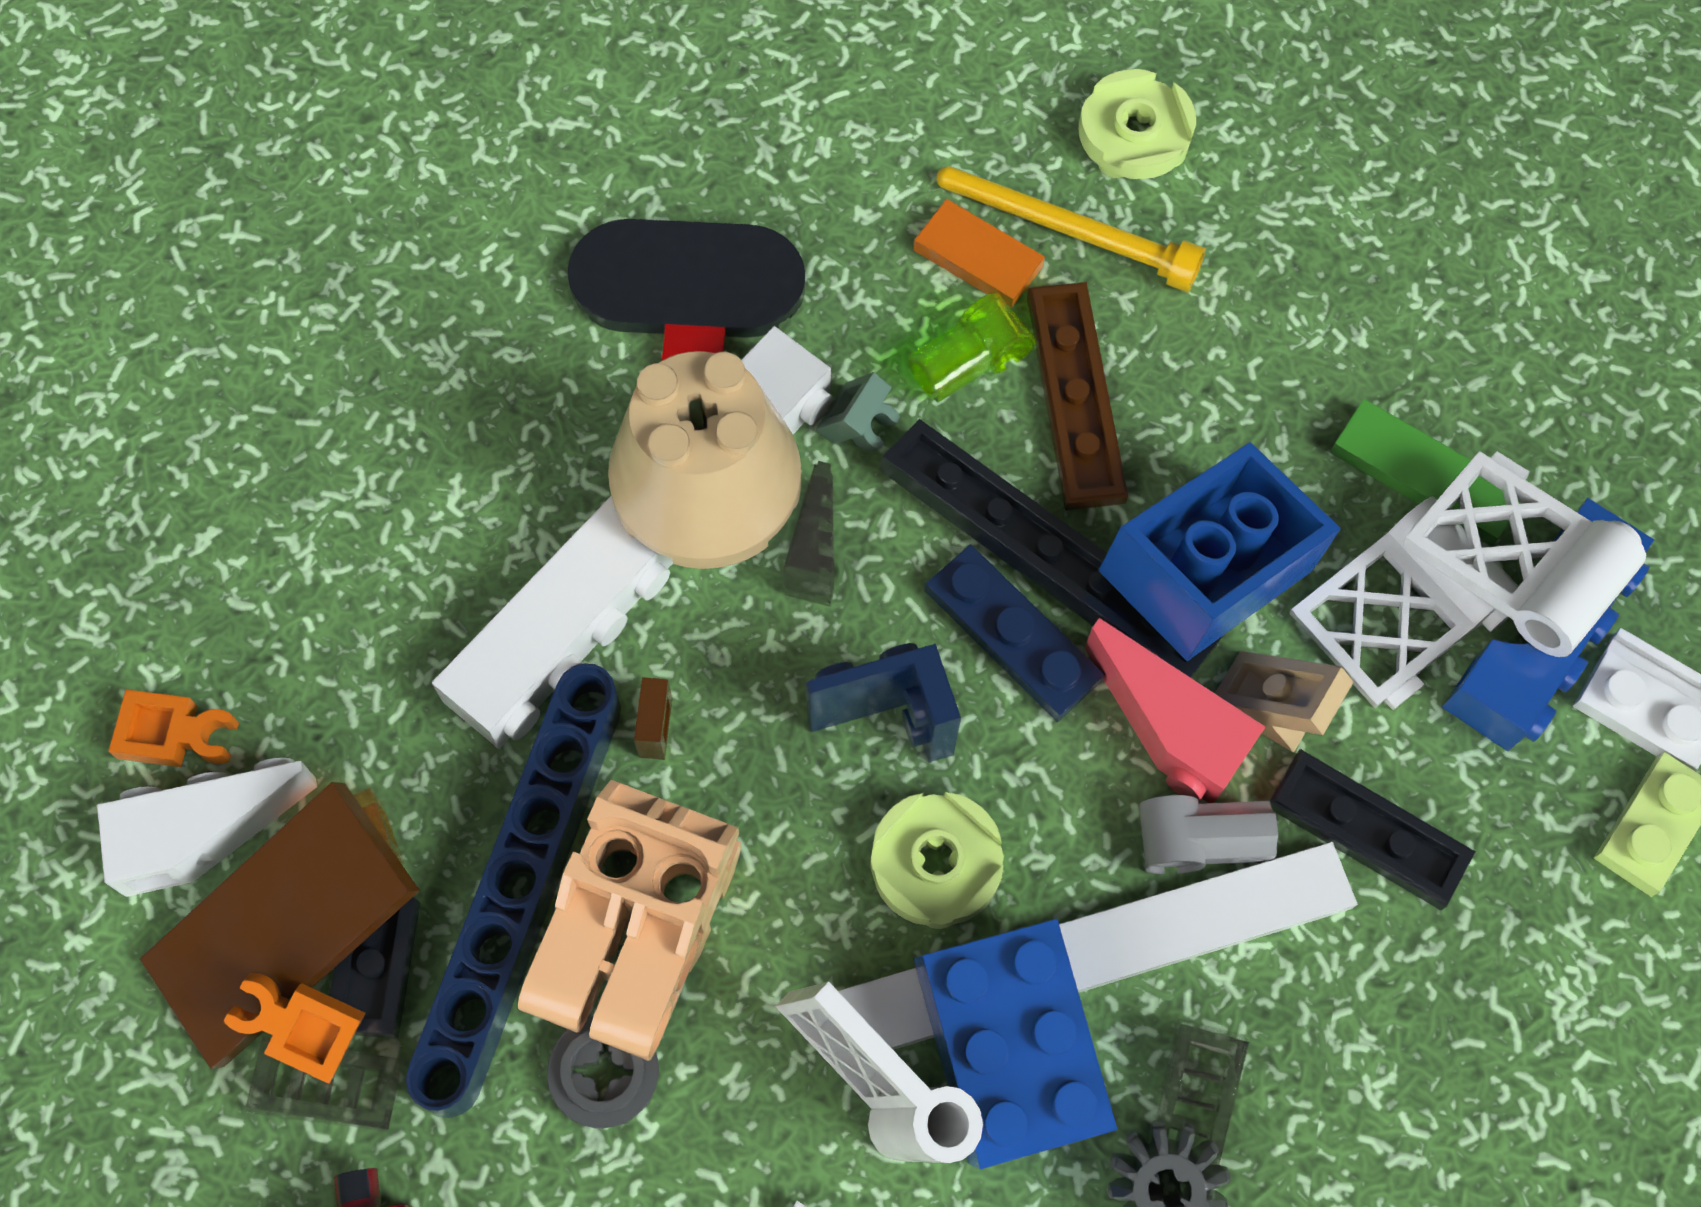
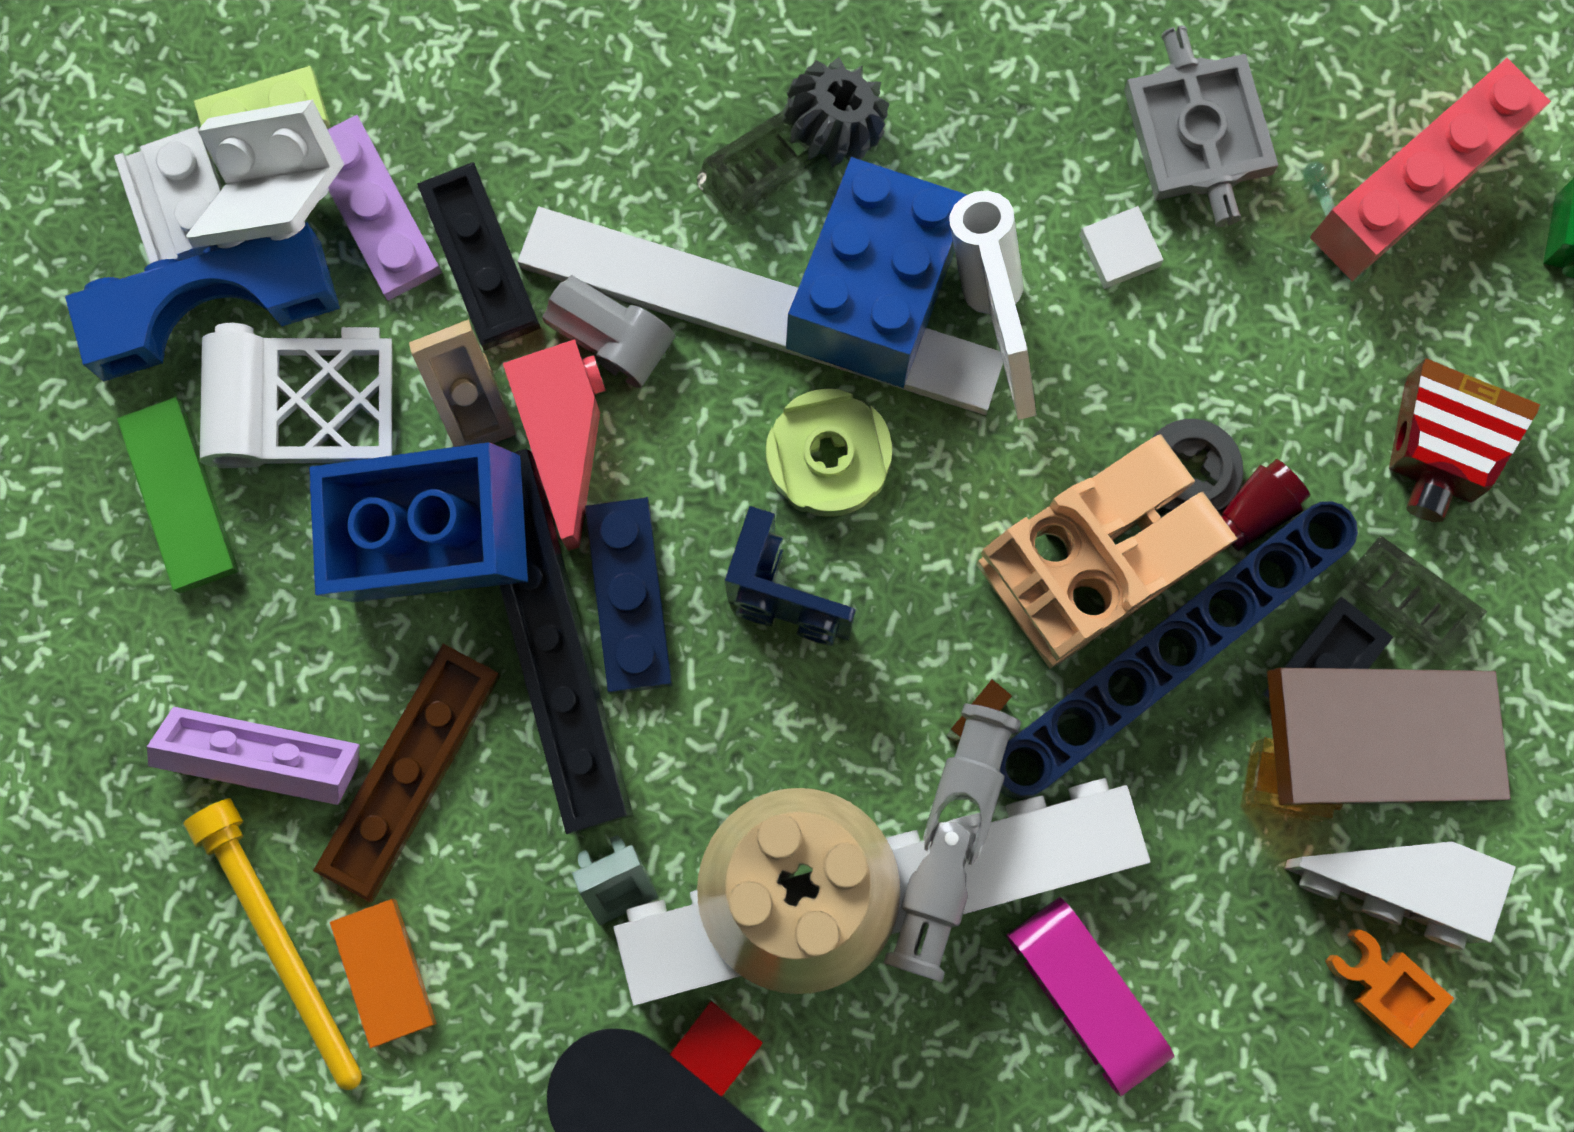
camera: 140 degrees left, 10 degrees up
(306, 1030) = (1416, 634): orange plate -> none
(422, 563) = (1091, 995): none -> dark pink beam
(516, 1078) = (1265, 502): none -> dark red cone
(593, 542) = (938, 886): none -> light grey piece
(810, 559) = (747, 773): clear smoke slope -> none
(980, 342) = (453, 873): clear neon green piece -> none
(1133, 153) = (97, 1019): yellowish green plate -> none
(1196, 325) = (254, 755): none -> lavender plate
(1495, 808) = (378, 214): none -> lavender plate
(1568, 585) = (166, 298): white piece -> none
(1583, 747) = (273, 170): none -> white bracket

